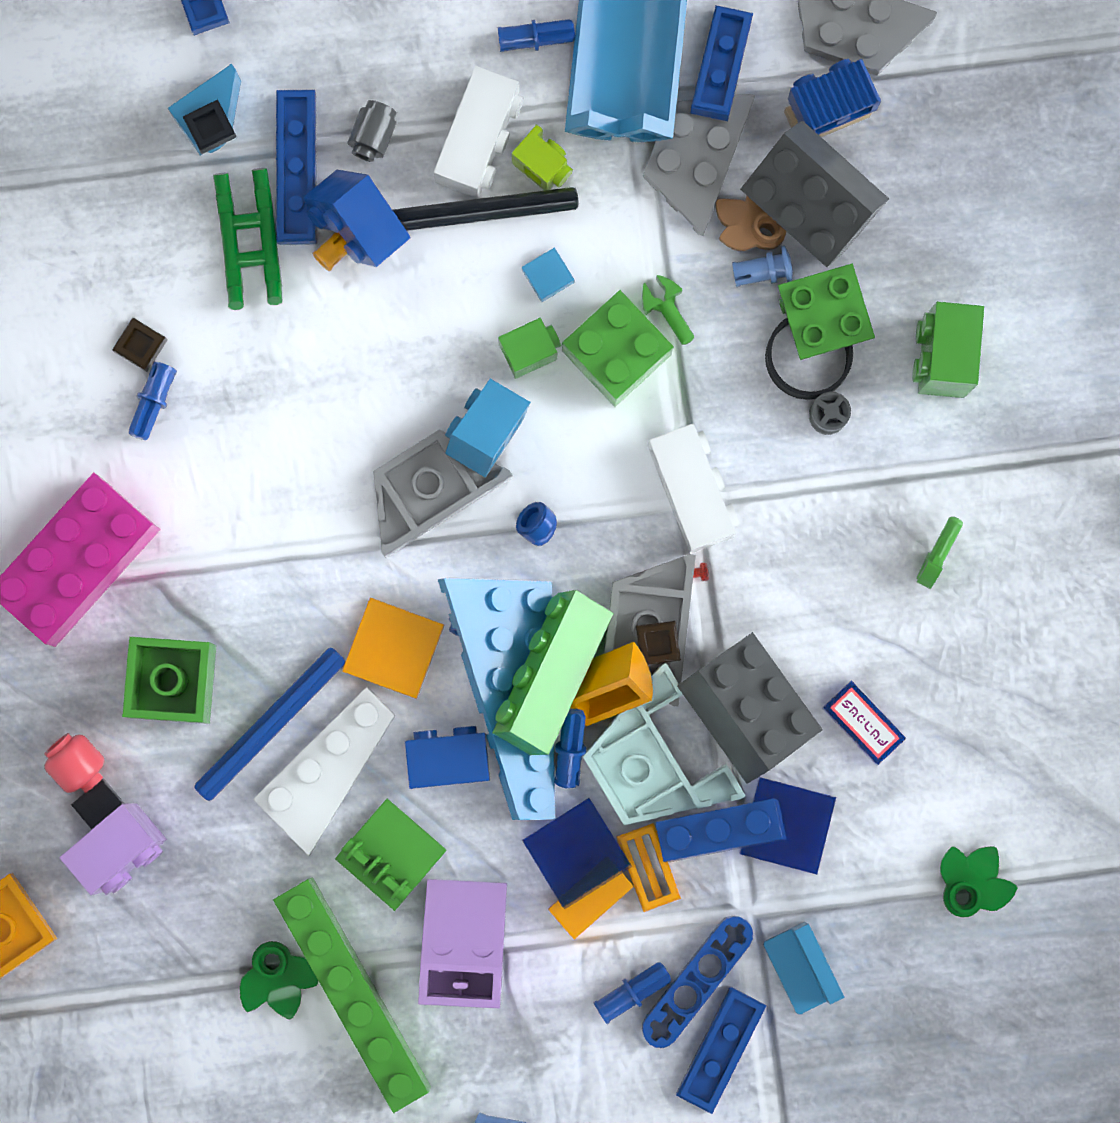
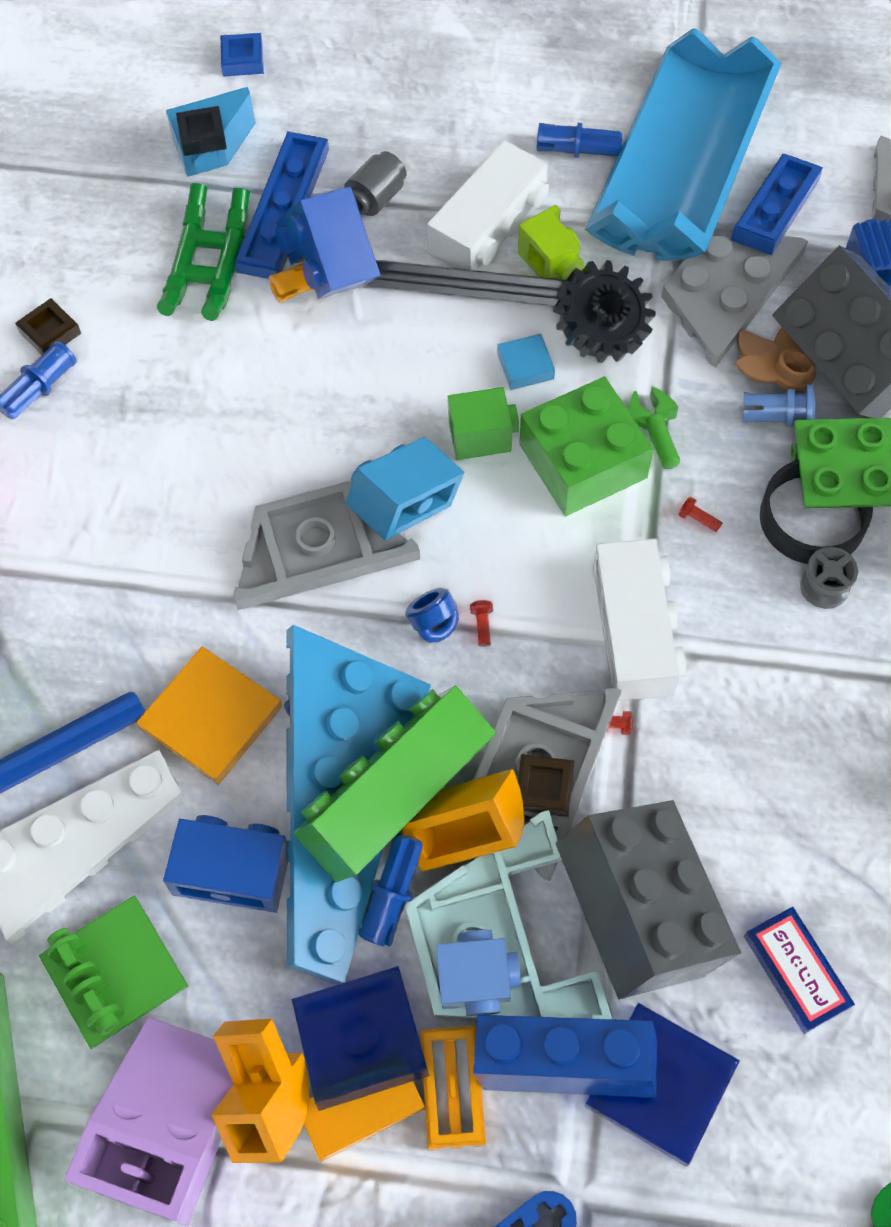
camera: 20 degrees right, 20 degrees down
(528, 912) = (267, 1096): none -> light orange brick
(576, 519) = (481, 609): none -> clear red piece
(621, 218) = (616, 295): none -> black gear
(647, 794) = (477, 973): none -> medium blue brick
(711, 378) = (689, 508): none -> clear red piece

